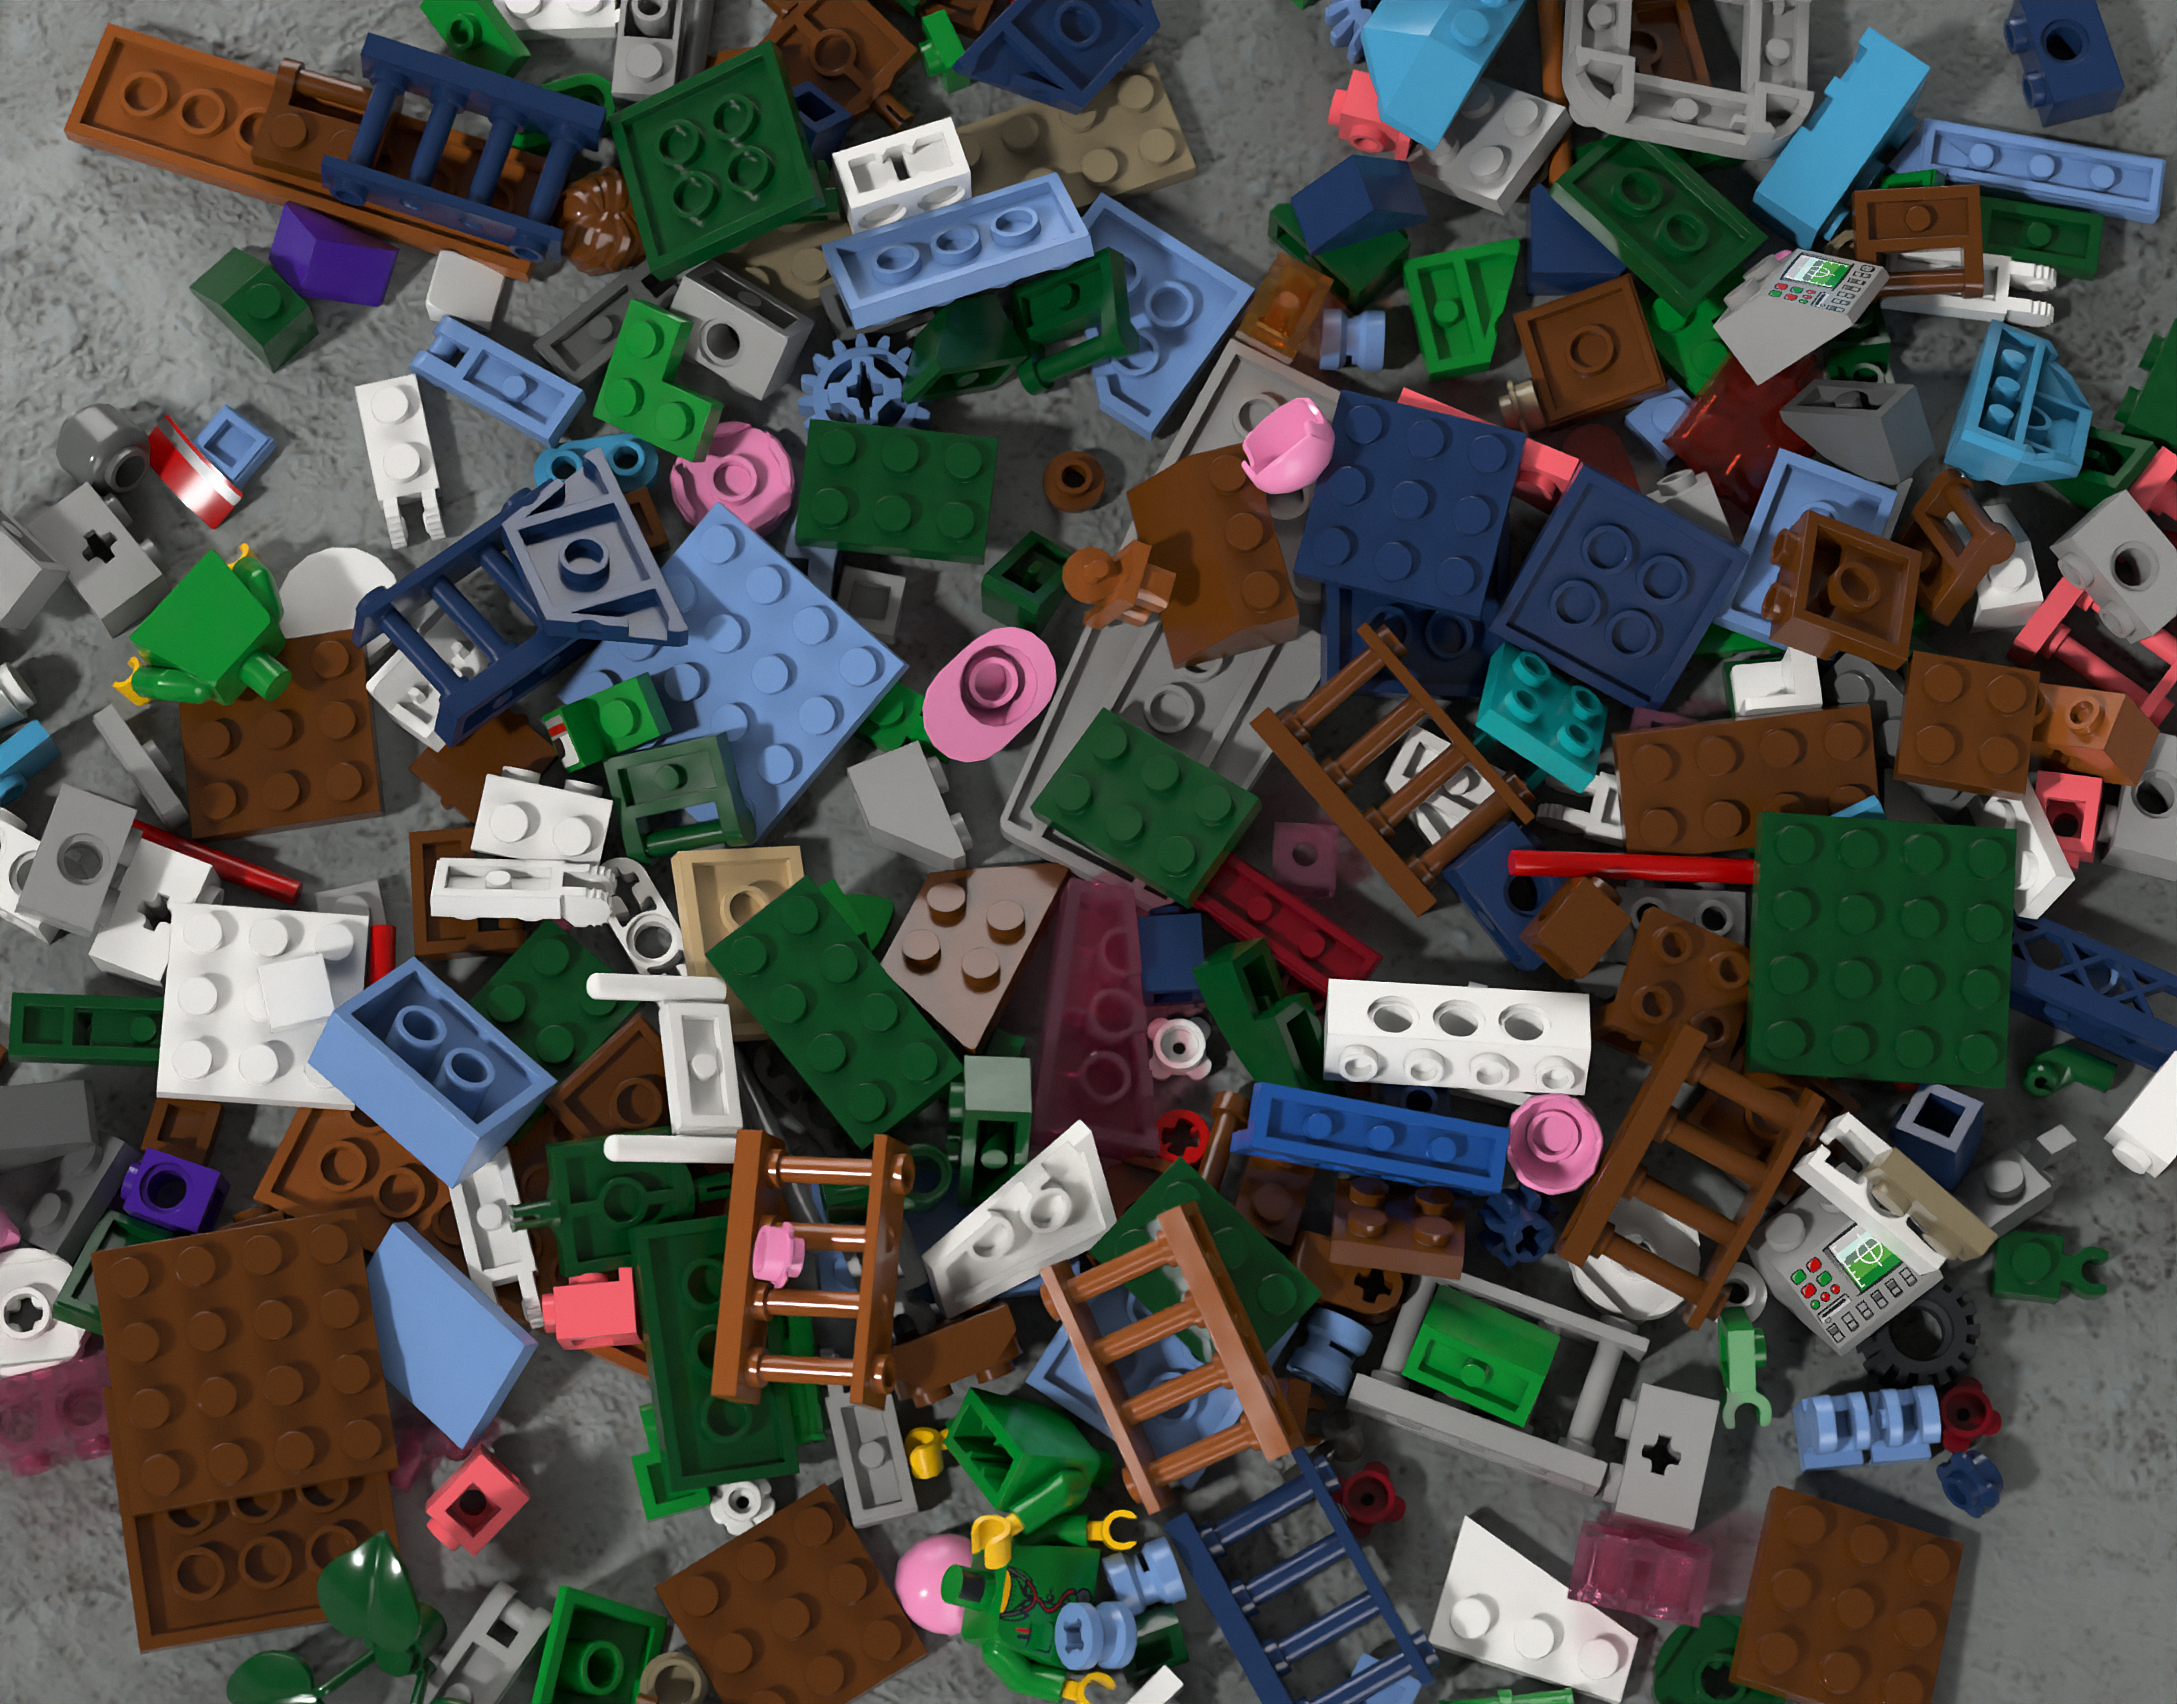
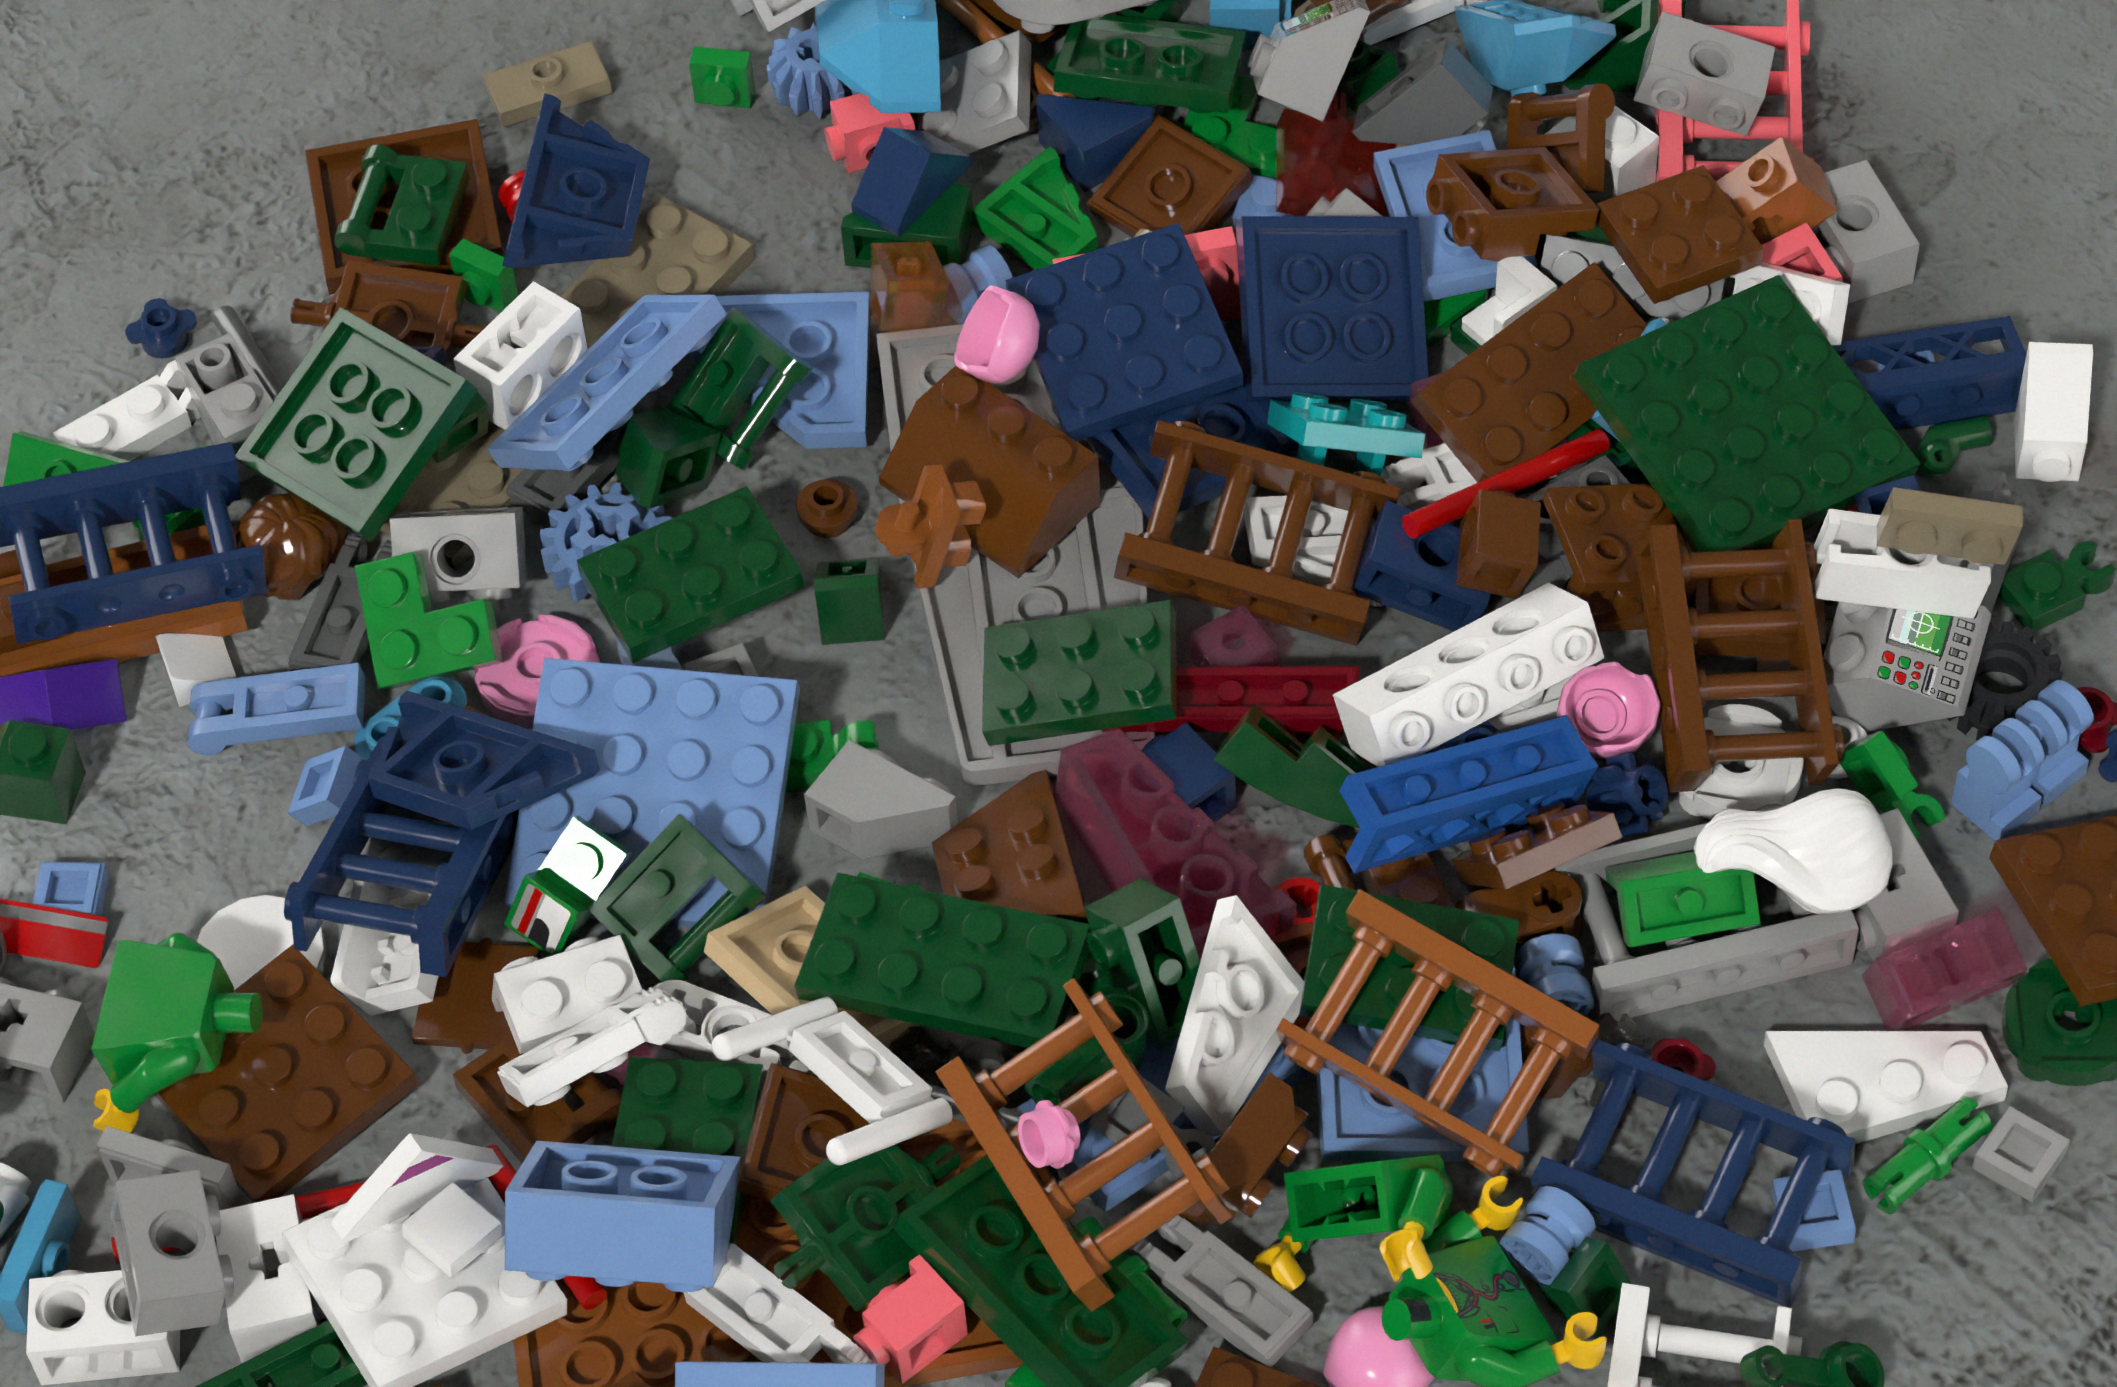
camera: 30 degrees left, 20 degrees down
(293, 932) = (410, 1179): none -> white tile
(400, 453) = (229, 813): white hinge -> none
(486, 486) = (324, 785): none -> medium blue plate
(988, 694) = (881, 674): bright pink piece -> none
(1095, 1635) = (1561, 1274): medium blue wheel -> none
(1192, 1035) = (1250, 830): white plate -> none
(1590, 1402) = (1818, 850): none -> white piece

